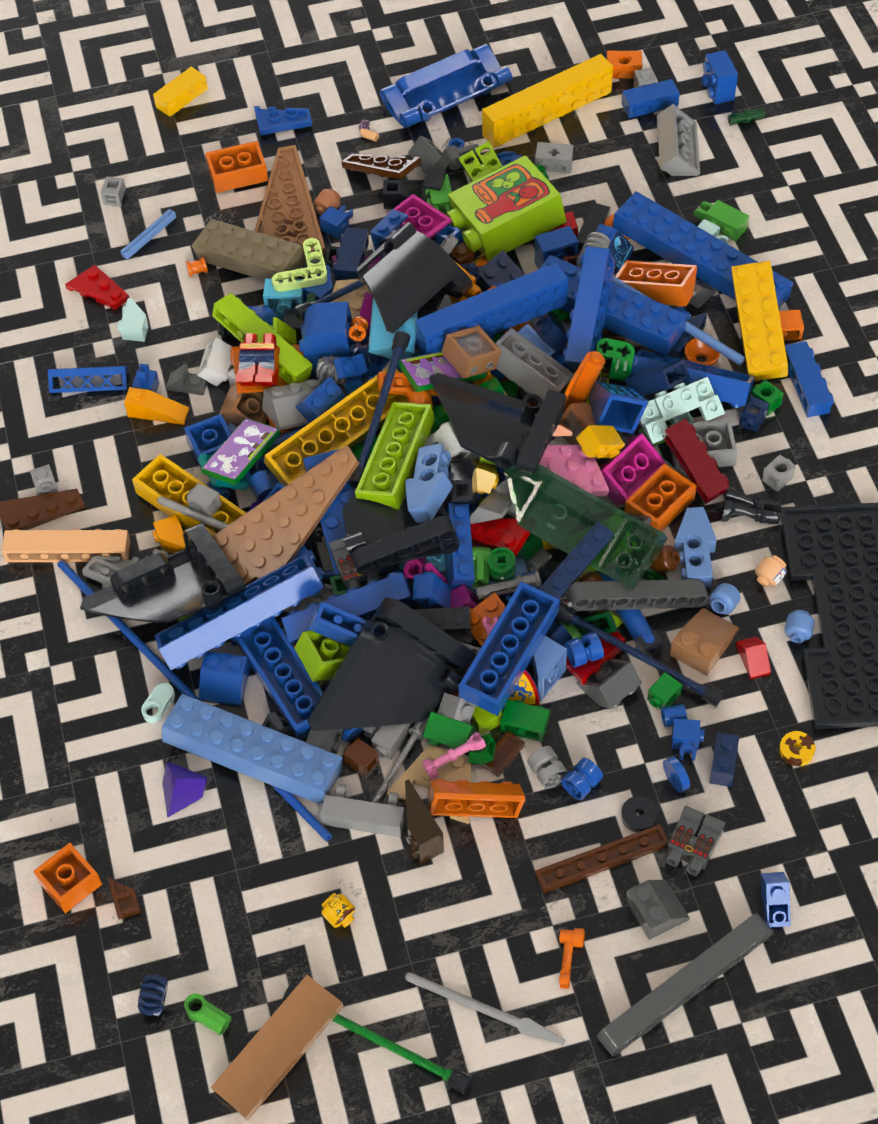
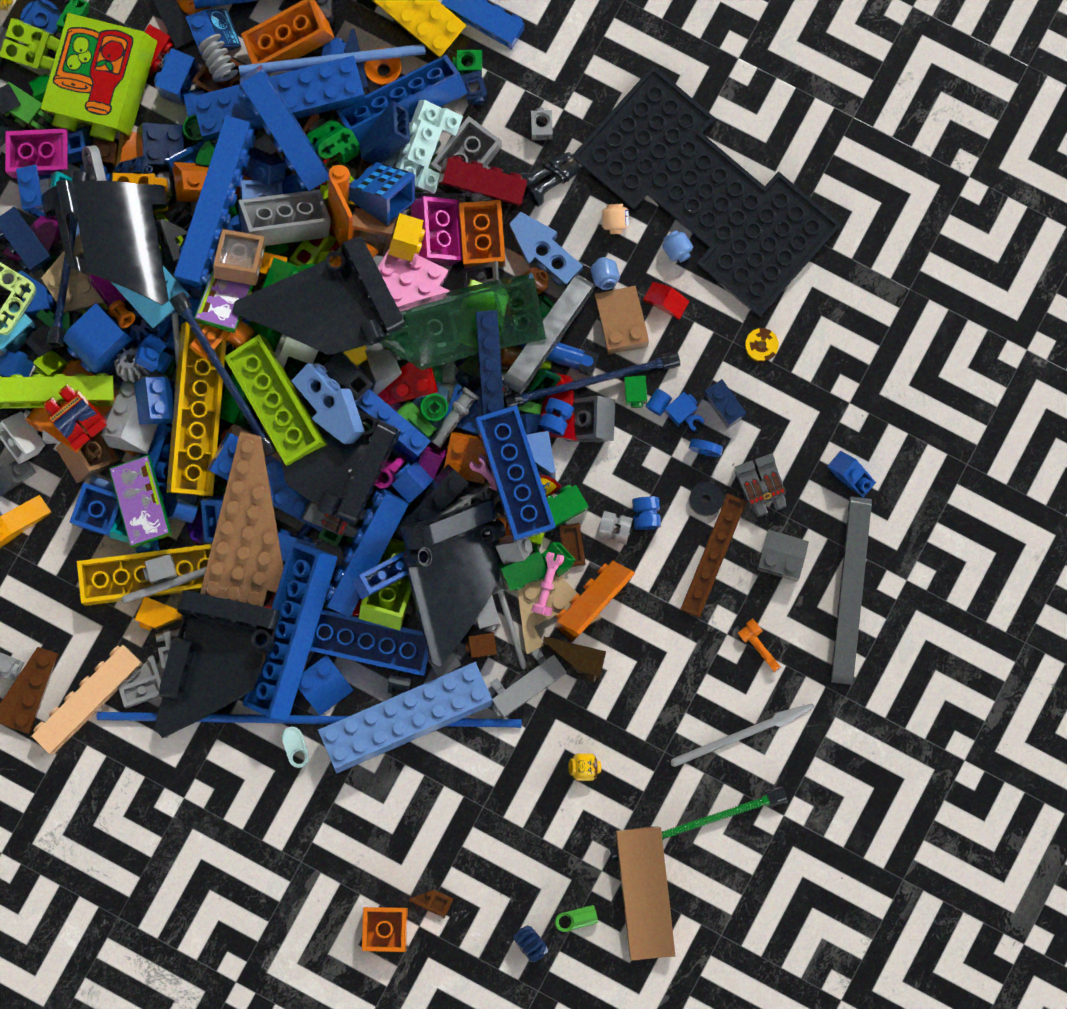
camera: 45 degrees left, 25 degrees up
(181, 787) = (384, 791): dark purple slope -> none

